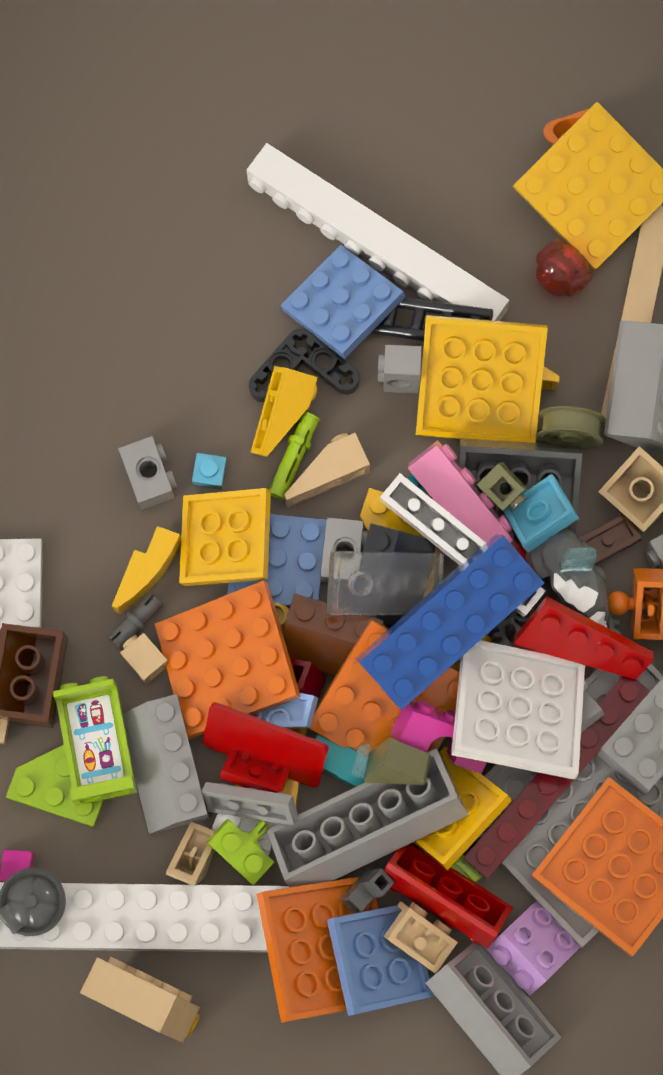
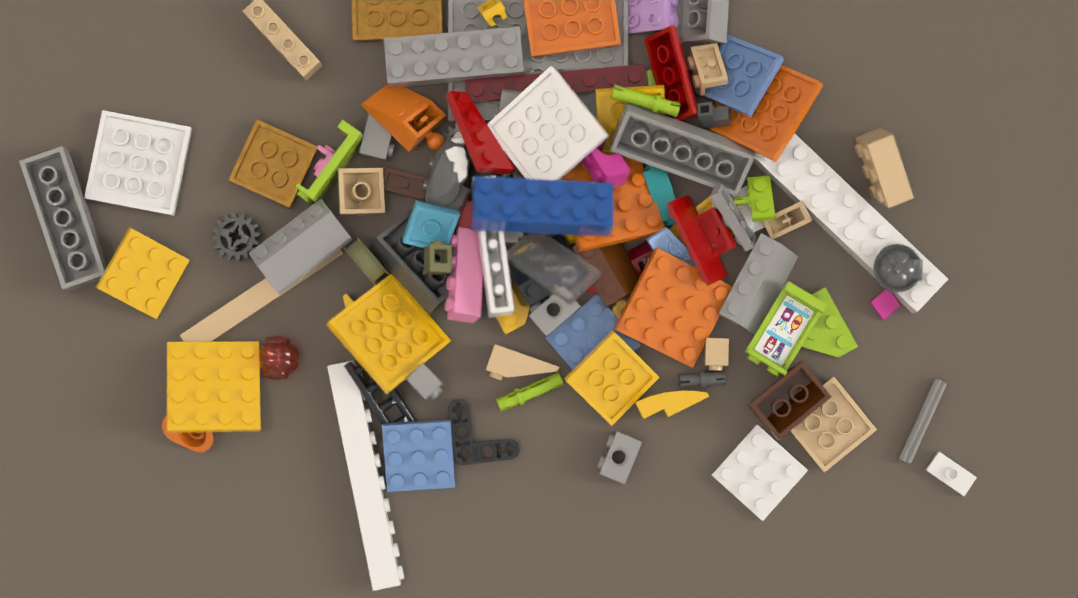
camera: 140 degrees left, 10 degrees up
(209, 470) = (583, 428): medium azure plate -> none
(284, 404) = (510, 423): yellow slope -> none
(361, 760) = (654, 183): clear light blue tile -> none
(397, 764) = (639, 160): olive slope -> none
(449, 832) = (644, 100): none -> lime pin
(577, 559) = (441, 175): clear light blue tile -> none

